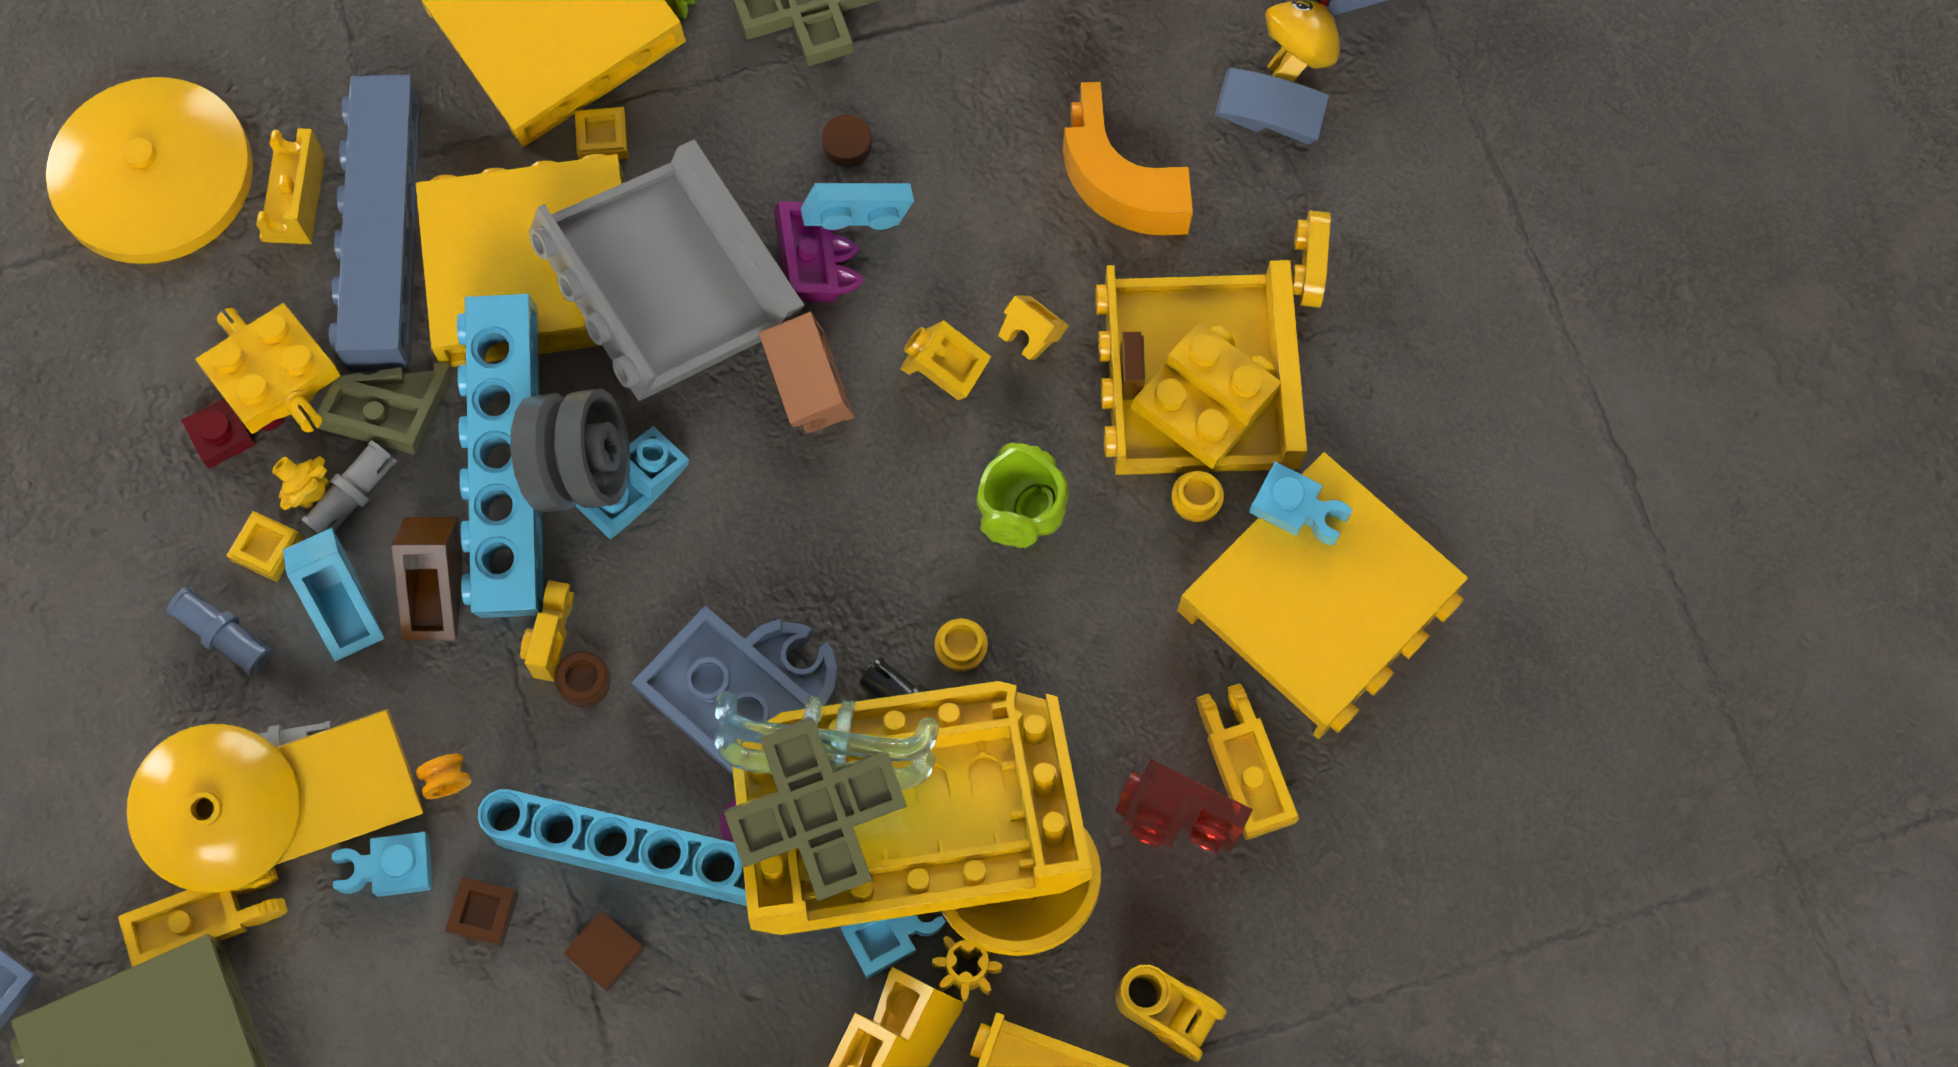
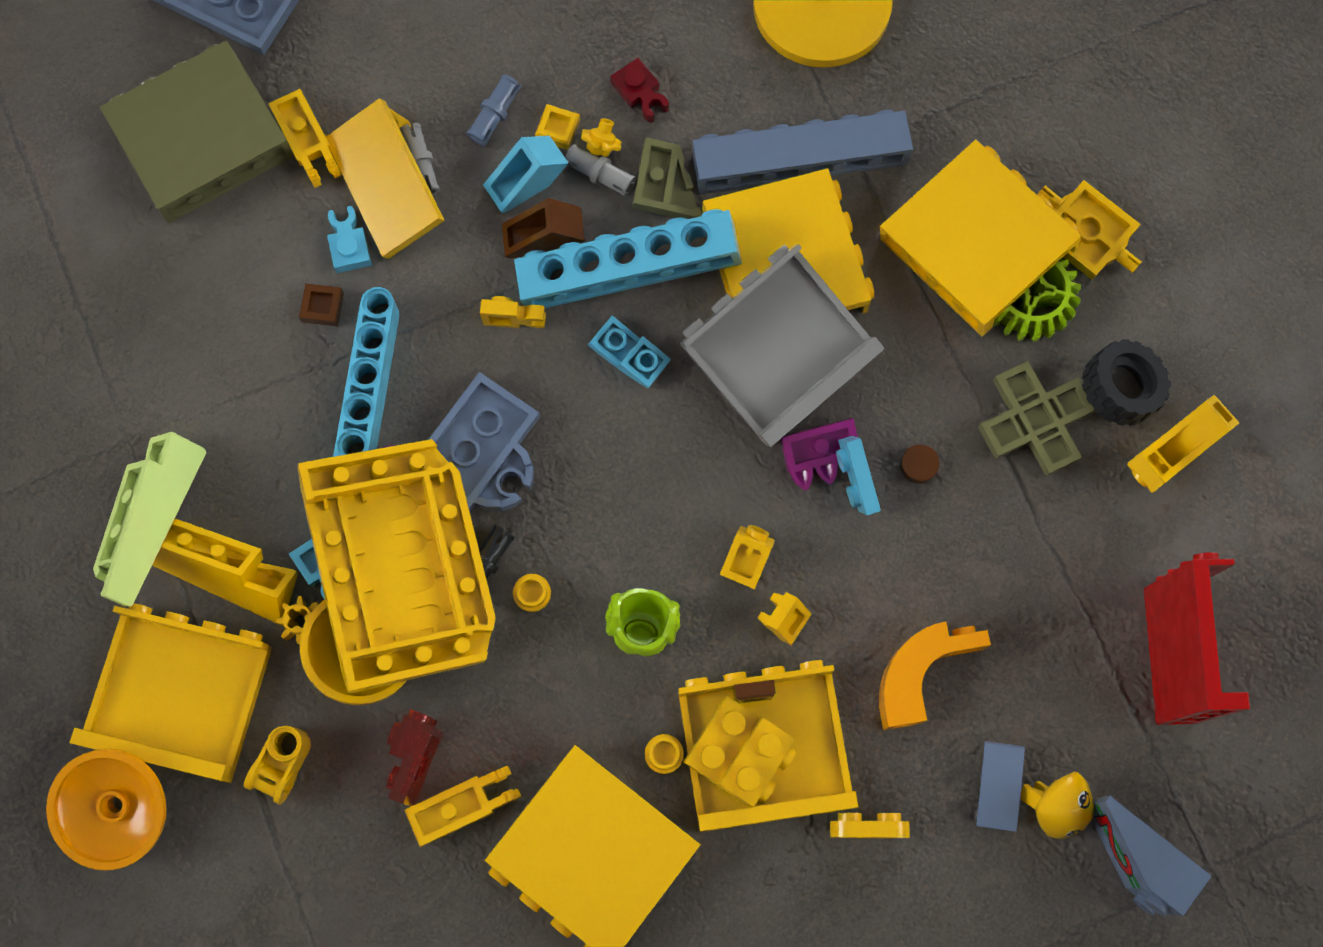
camera: 85 degrees right, 5 degrees up
(252, 801) = (381, 135): yellow dish -> none
(268, 368) = (679, 102): yellow plate -> none
(292, 189) = (819, 94): yellow hinge -> none
(443, 776) = (406, 264): light orange bush -> none
(570, 450) = (629, 301): dark grey wheel -> none
(582, 679) = (484, 342): reddish brown tile -> none
(602, 132) = (897, 290): yellow tile -> none
(604, 951) = (300, 384): reddish brown tile -> none
(806, 374) = (723, 458): nougat hinge -> none
(815, 808) = (373, 495): olive plate -> none
(836, 743) = (418, 501): clear light blue piece -> none
(1291, 501) = (654, 821): medium azure plate -> none

